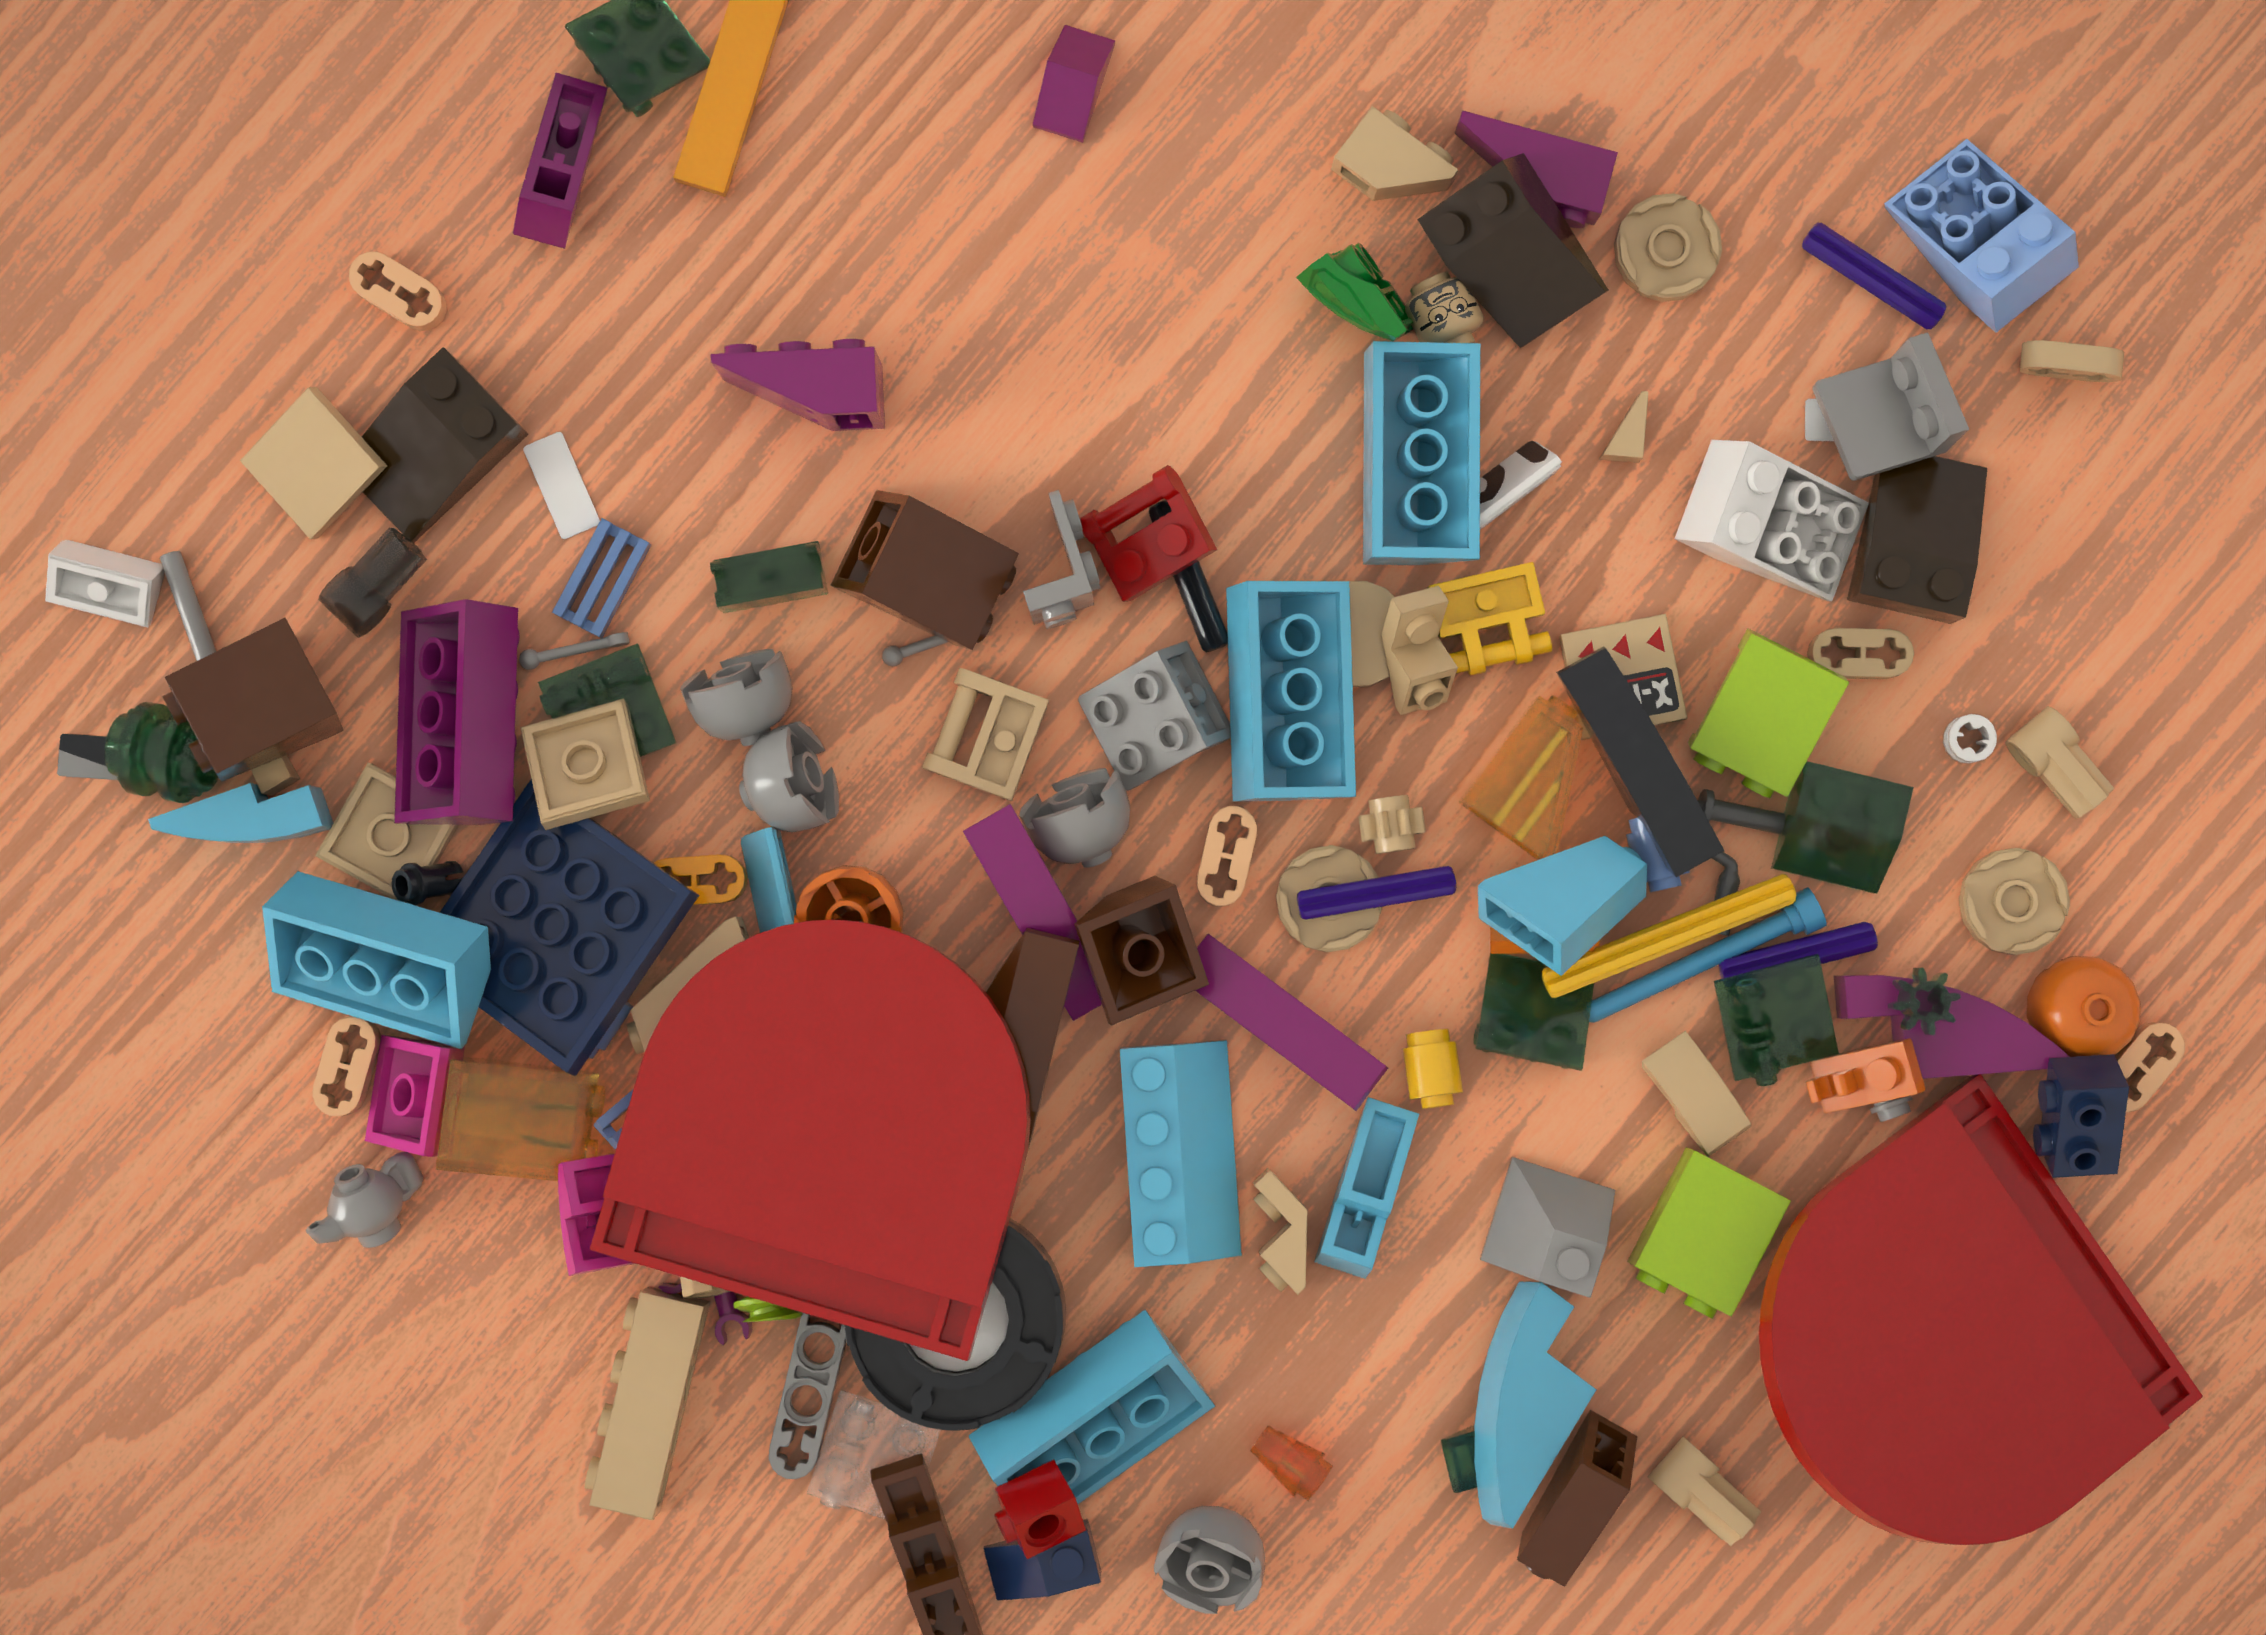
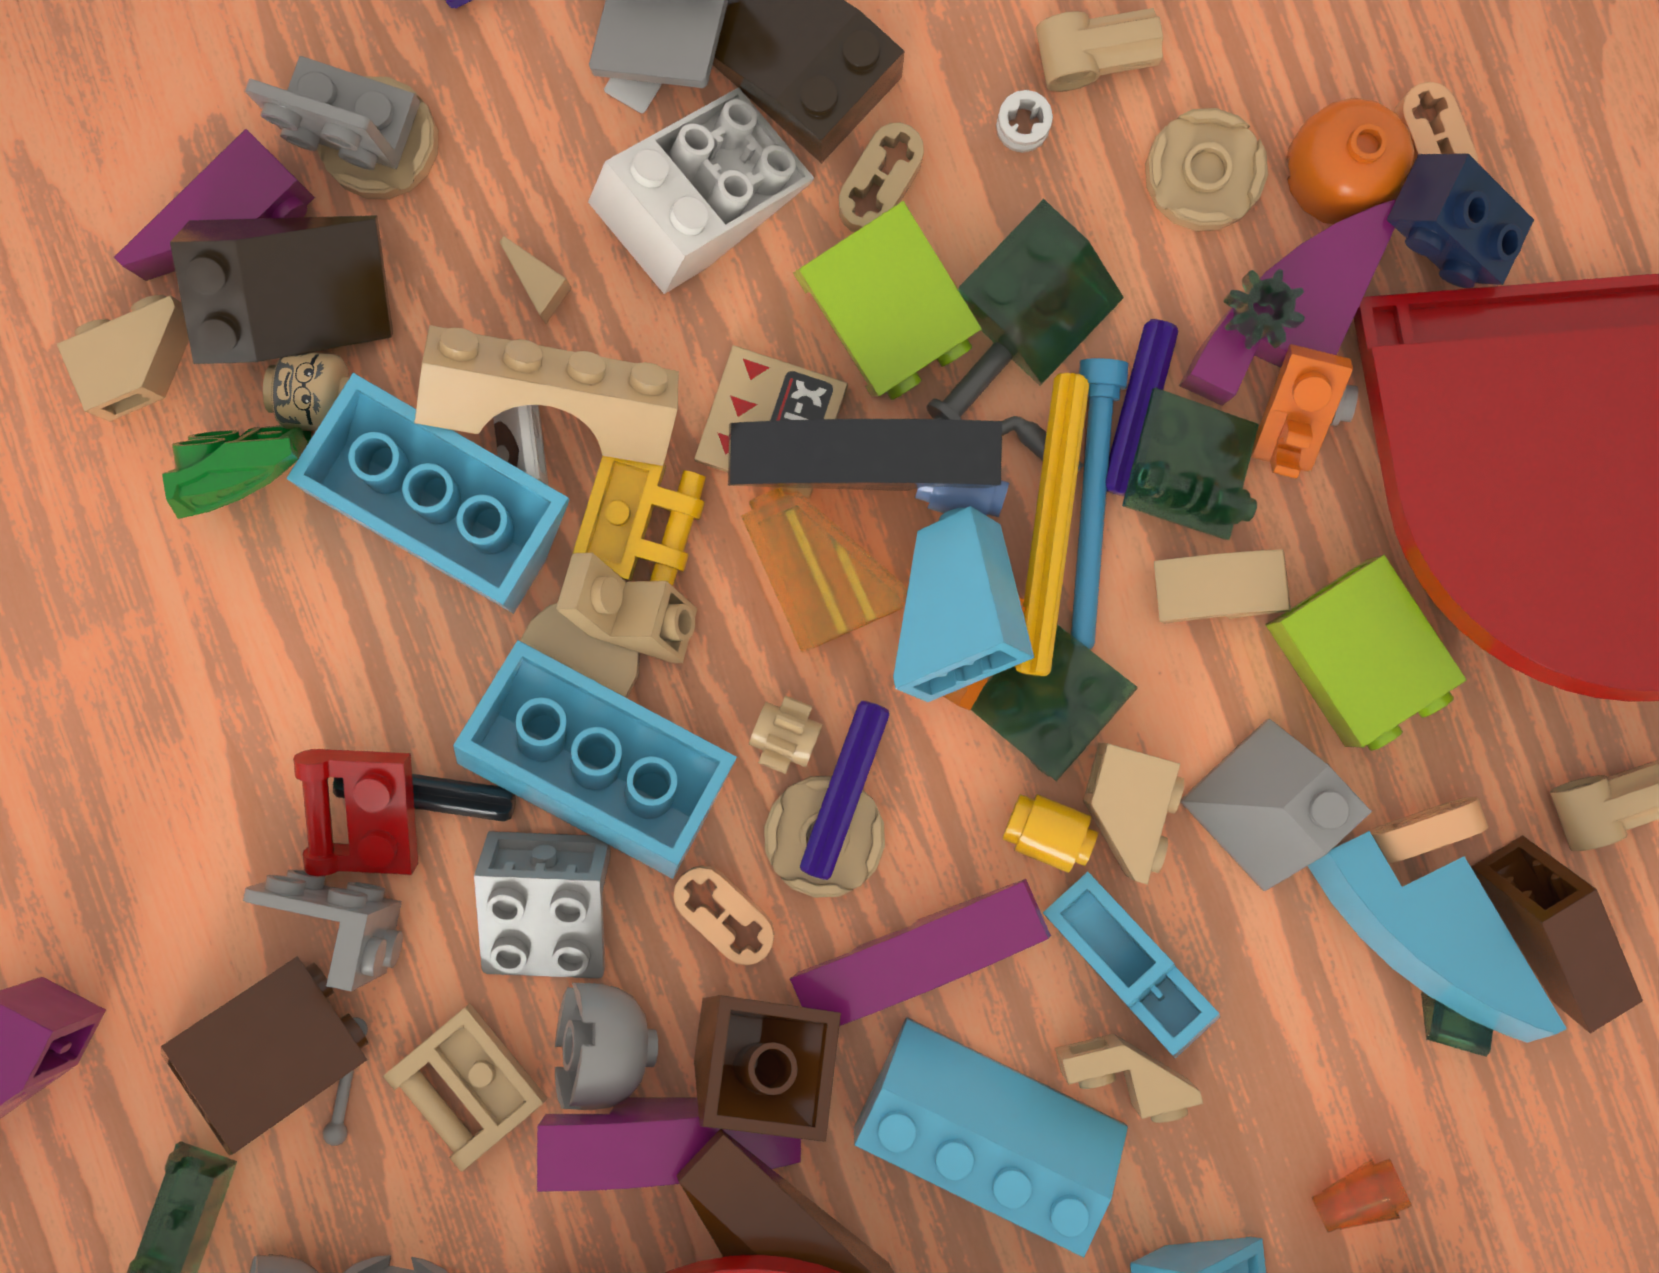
camera: 60 degrees left, 0 degrees up
(1489, 1115) = (1129, 804): none -> tan slope
(1530, 439) = (478, 376): none -> tan arch
(1600, 1357) = (1430, 829): none -> light nougat beam
(1672, 216) = (339, 111): none -> light grey bracket

